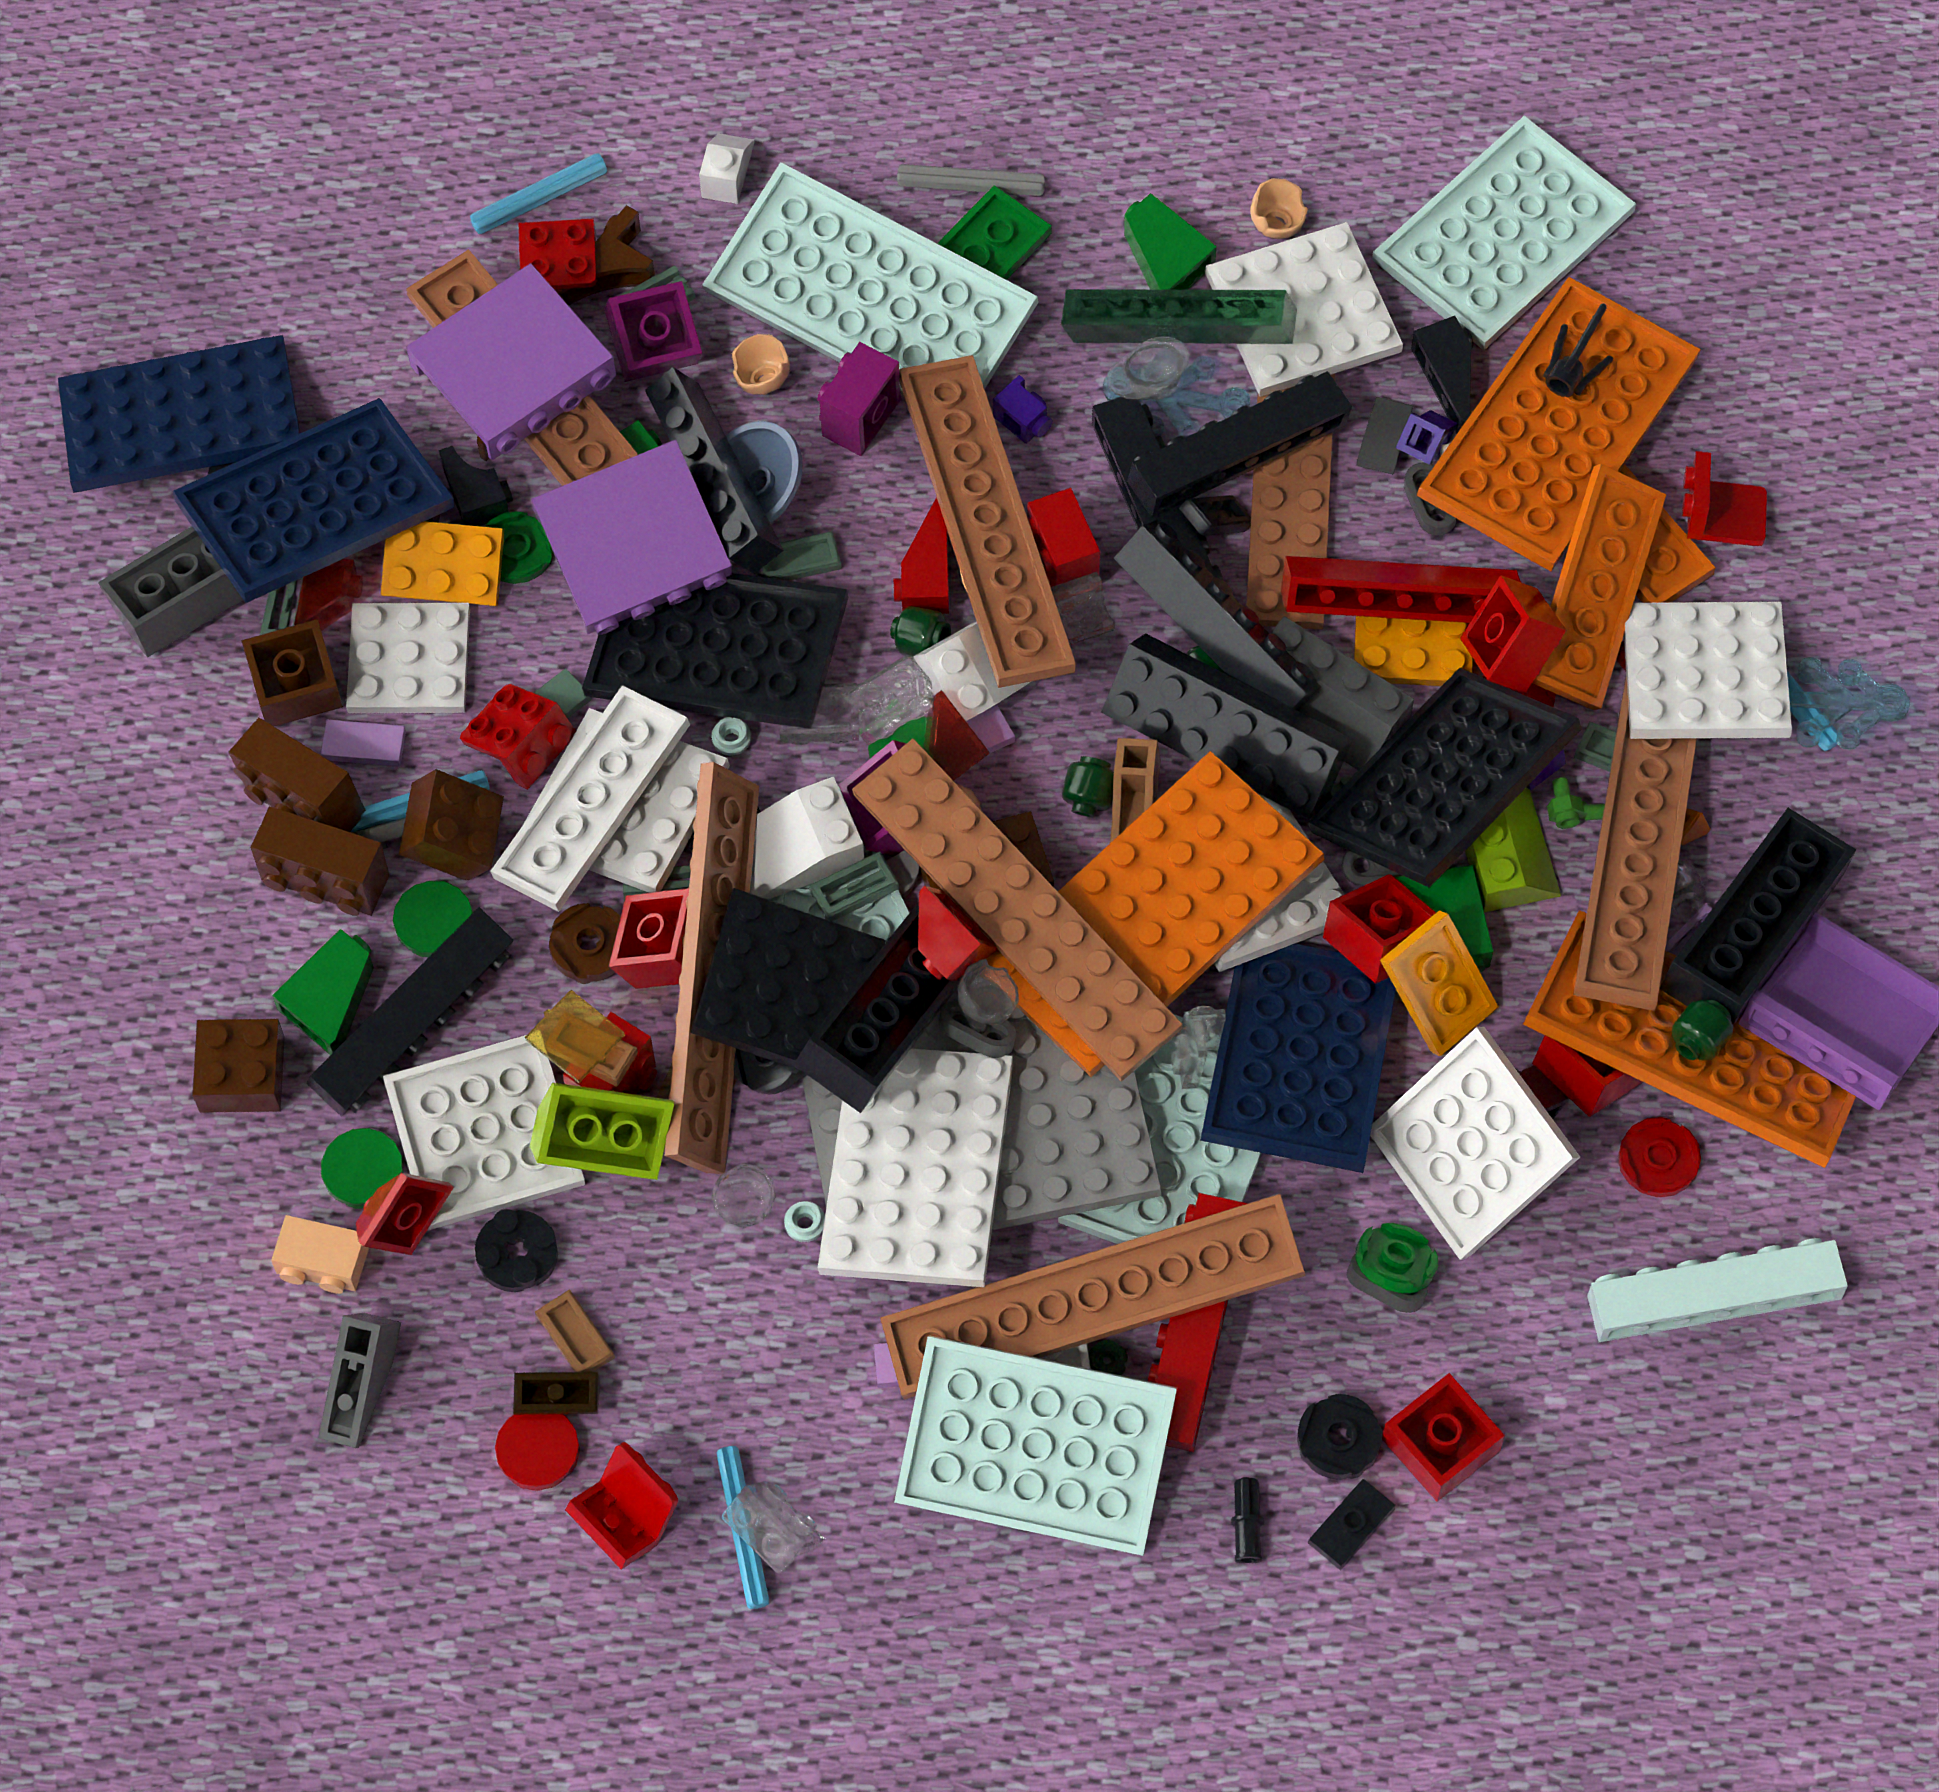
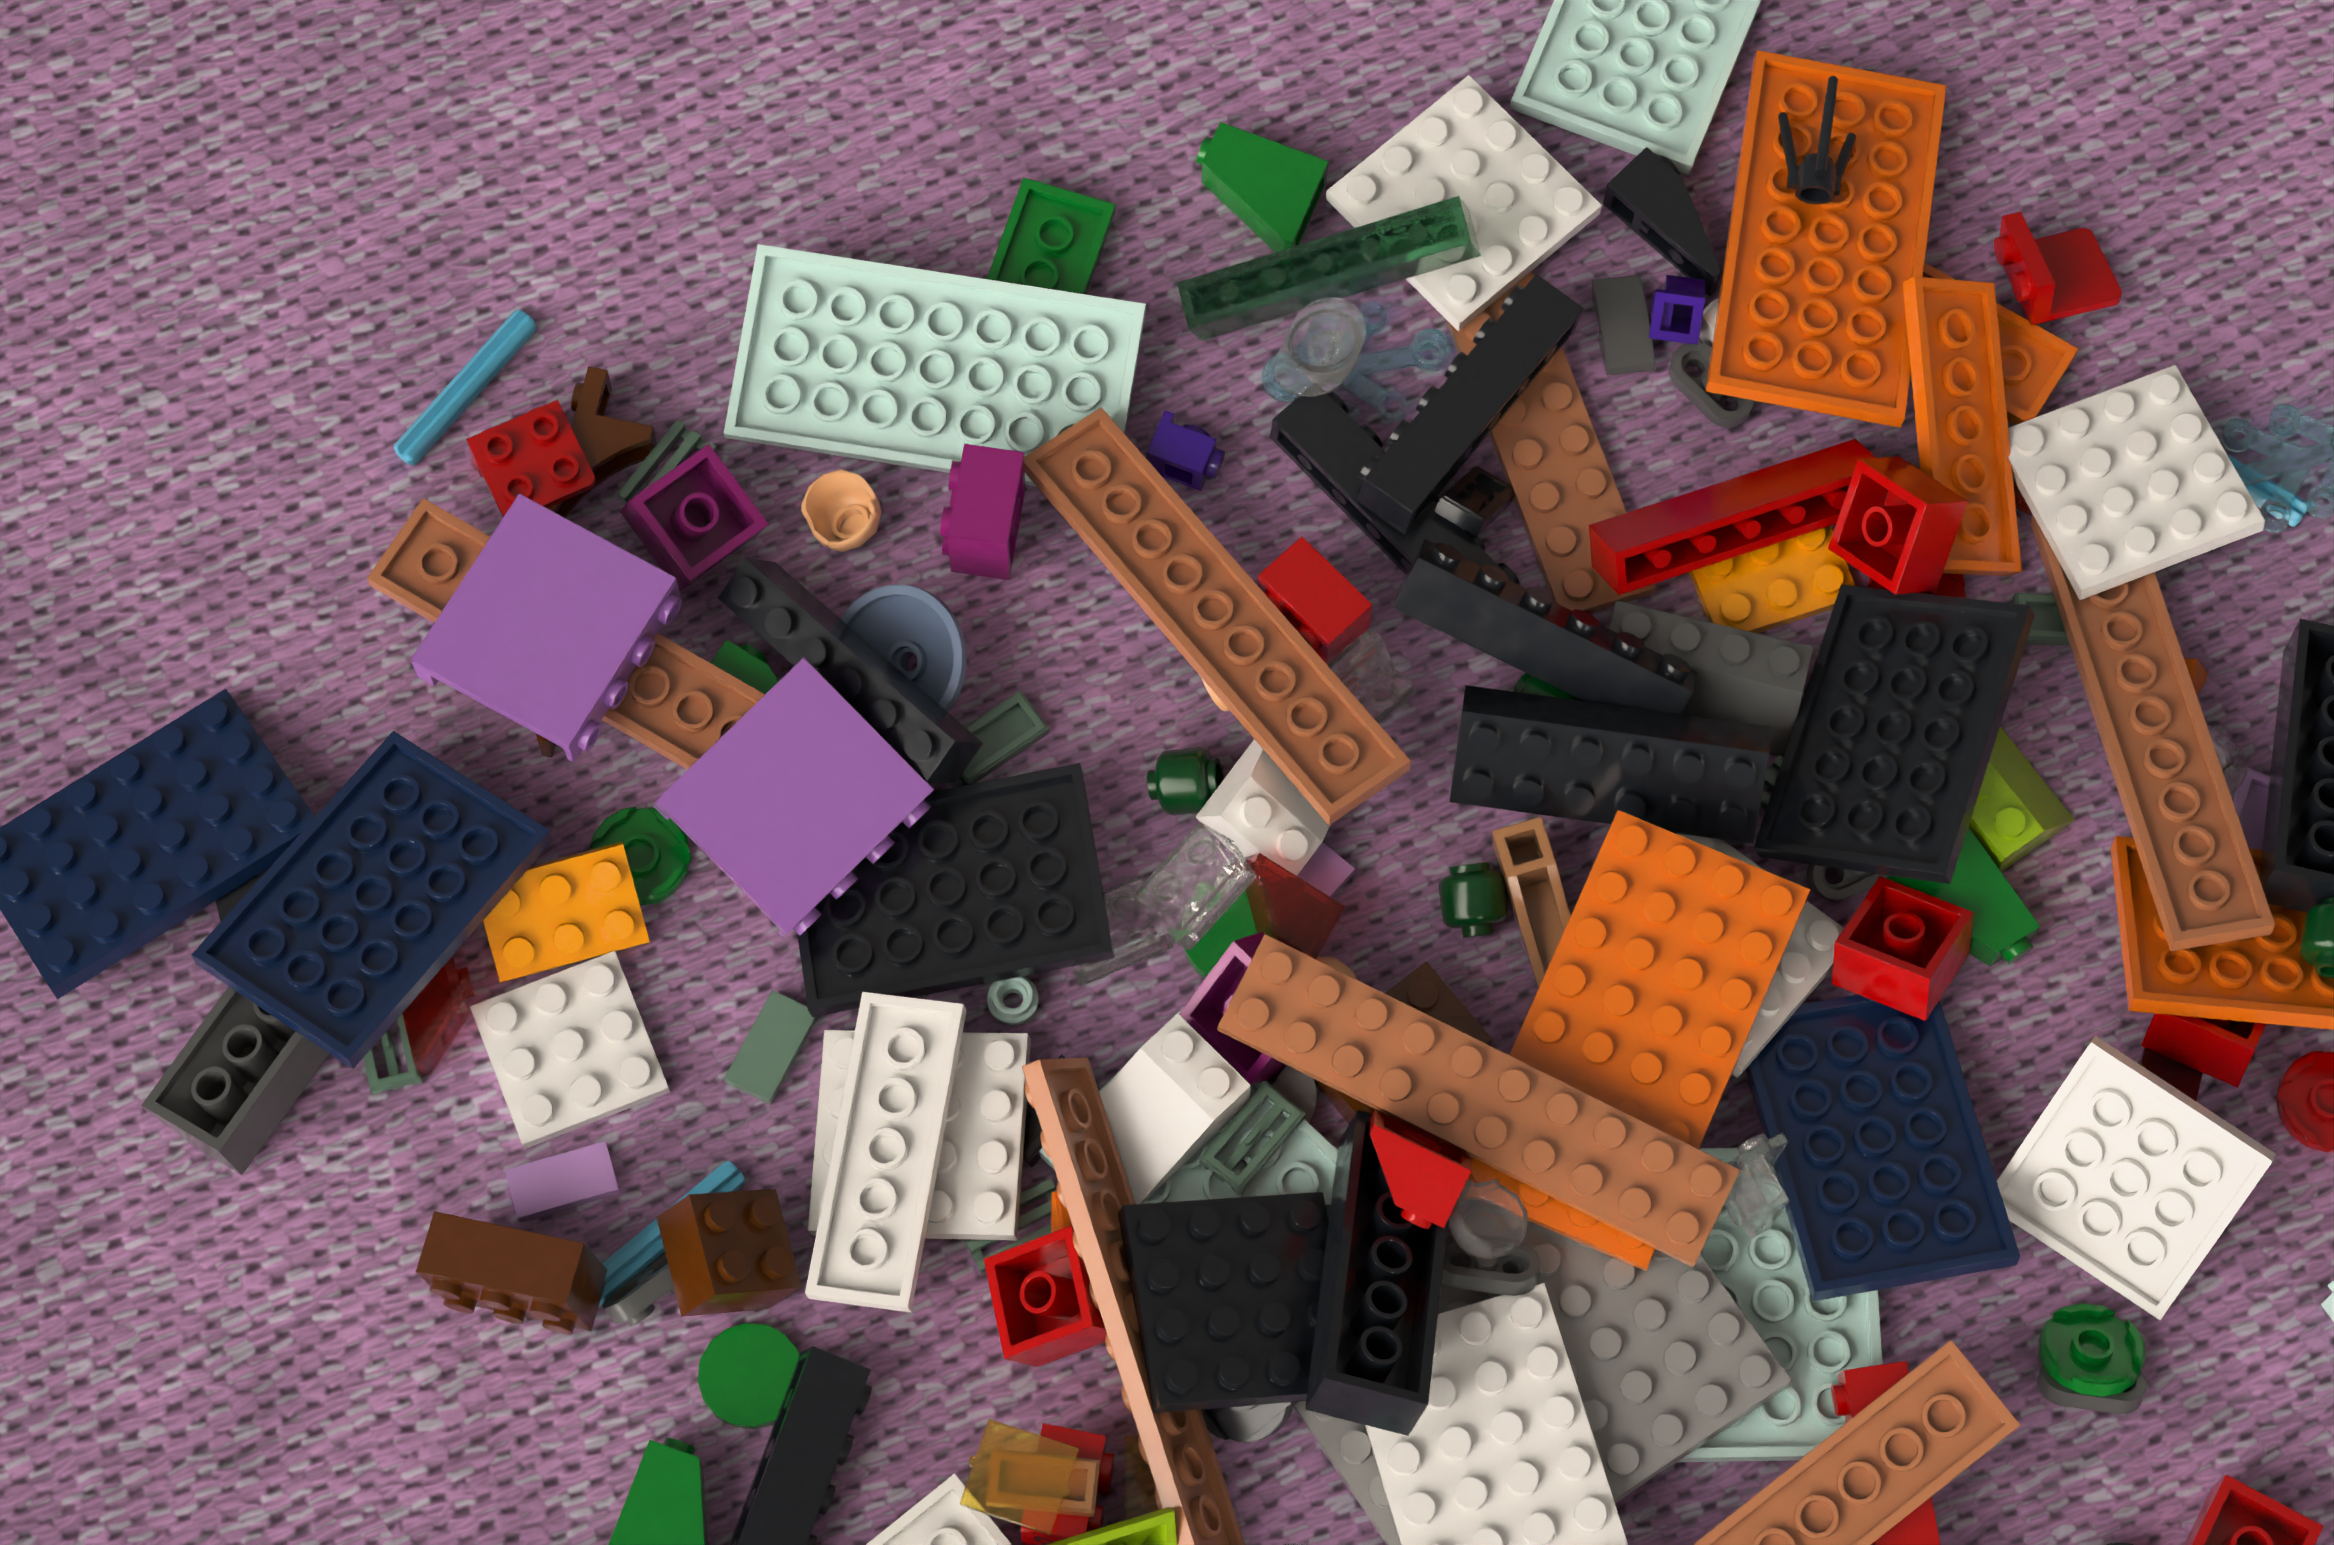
camera: 25 degrees left, 5 degrees up
(292, 673) = (439, 1129): reddish brown brick -> none
(320, 862) = (585, 1364): reddish brown brick -> none
(474, 490) = (562, 803): black arch -> none
(520, 732) = (752, 1094): red bracket -> none
(565, 942) = (927, 1339): reddish brown plate -> none
(725, 167) = (684, 270): white slope -> none
(926, 566) = (1159, 703): red slope -> none
(970, 179) = (988, 179): light grey axle -> none
(1281, 200) = (1376, 72): light nougat hair -> none
(1439, 983) = (1998, 991): light orange plate -> none
(1568, 809) = (2041, 712): bright green piece -> none

